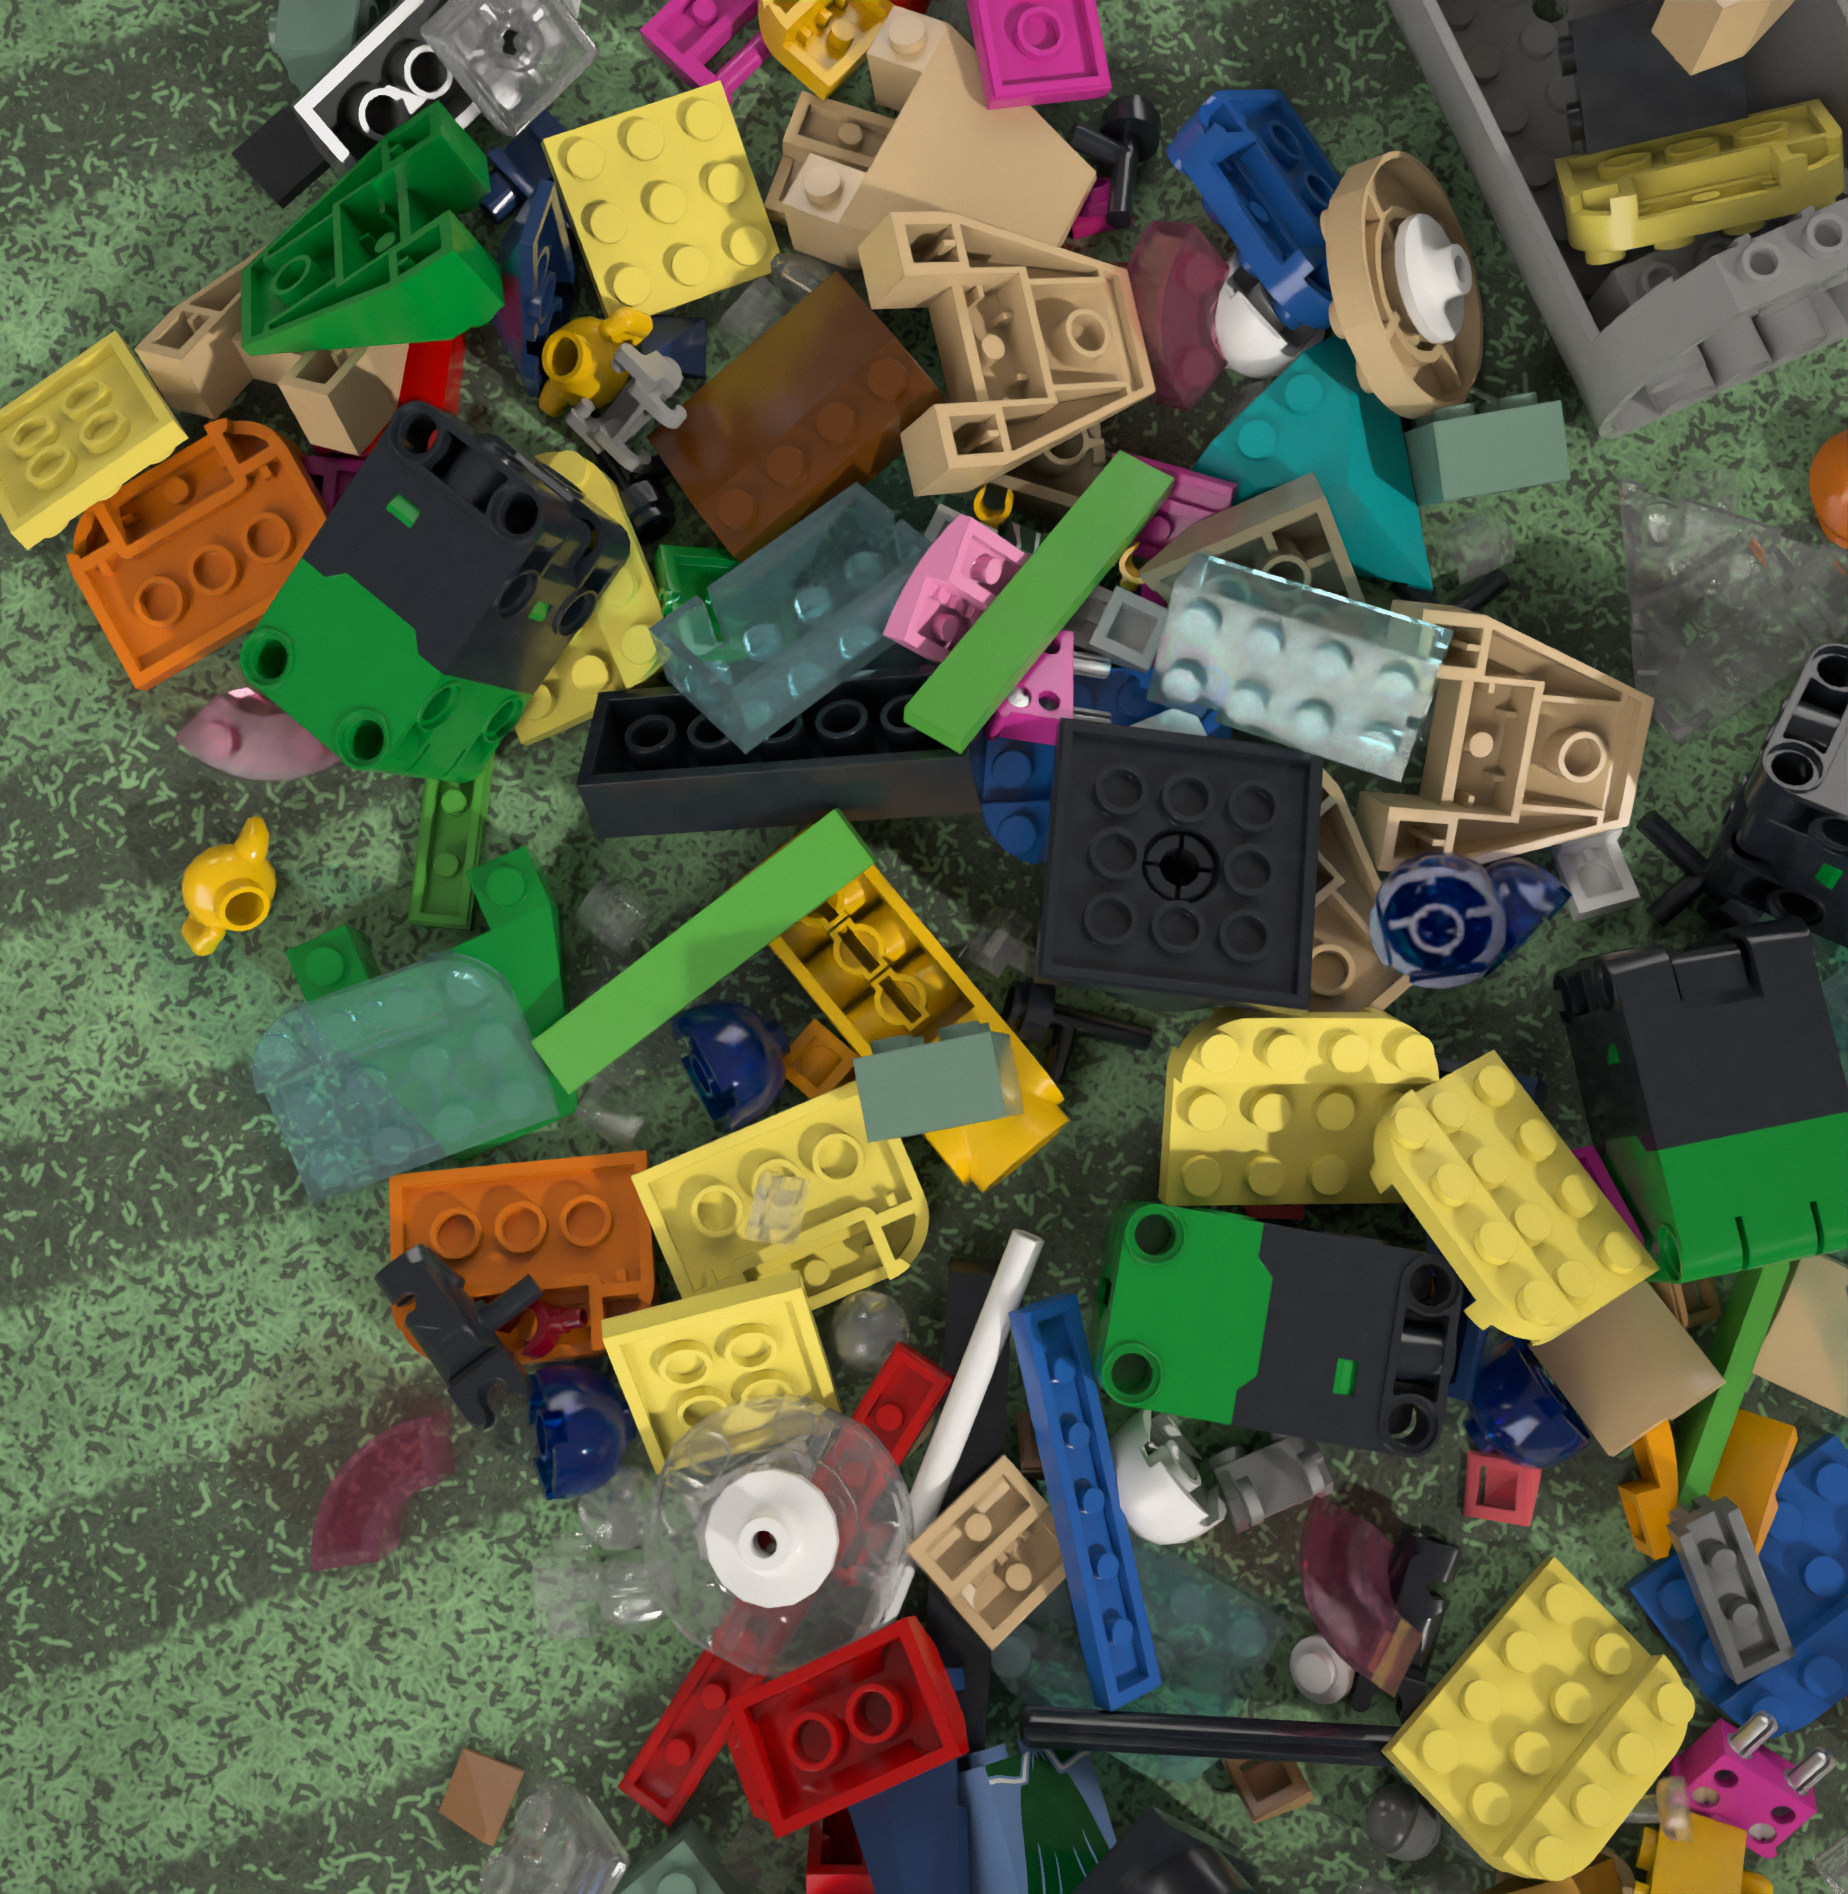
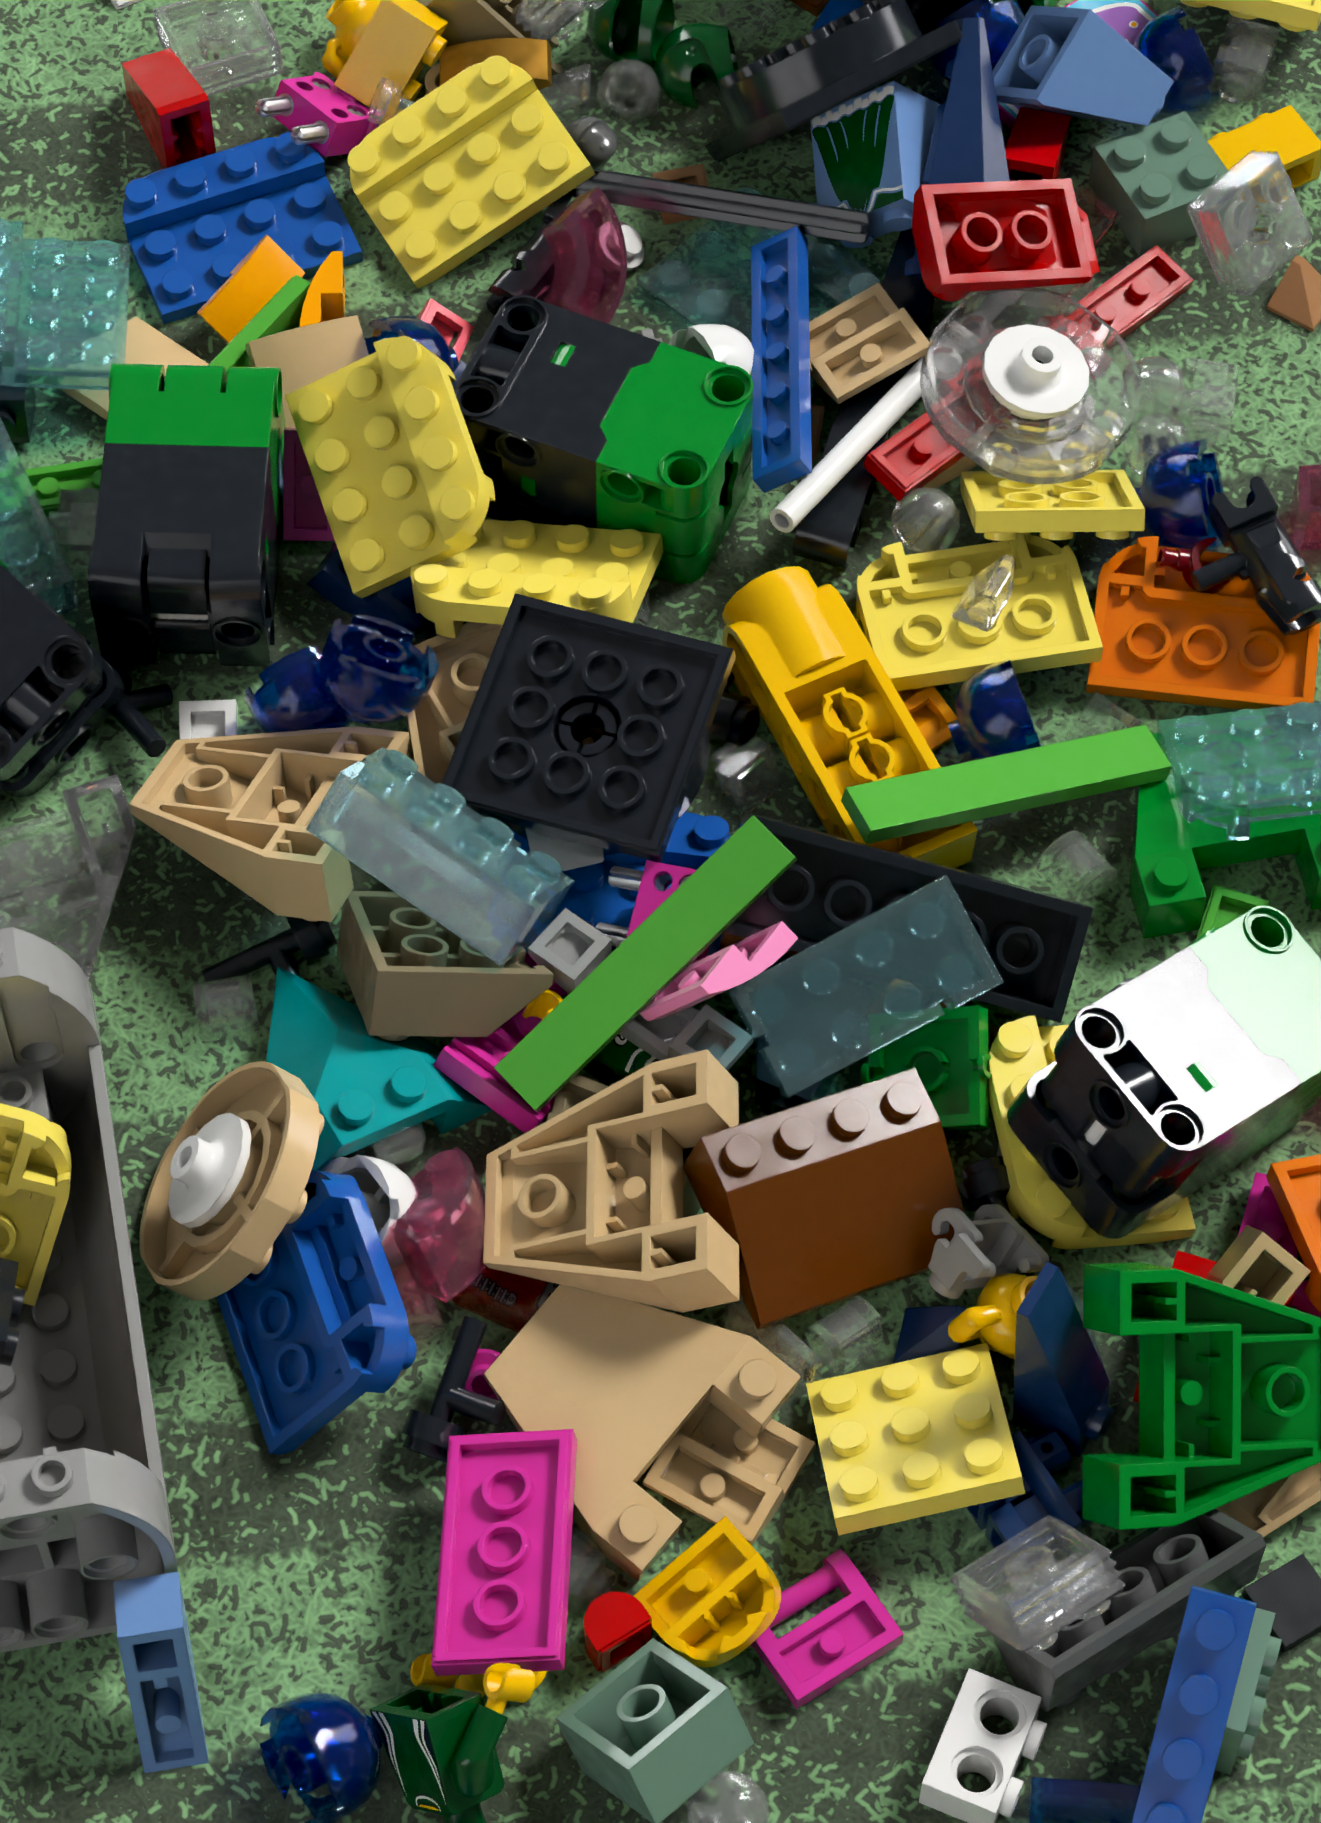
camera: 165 degrees left, 25 degrees down
(937, 1085) = (831, 601): sand green brick -> none
(1489, 453) = (194, 1036): sand green brick -> none
(1729, 1587) = (294, 220): dark grey hinge -> none

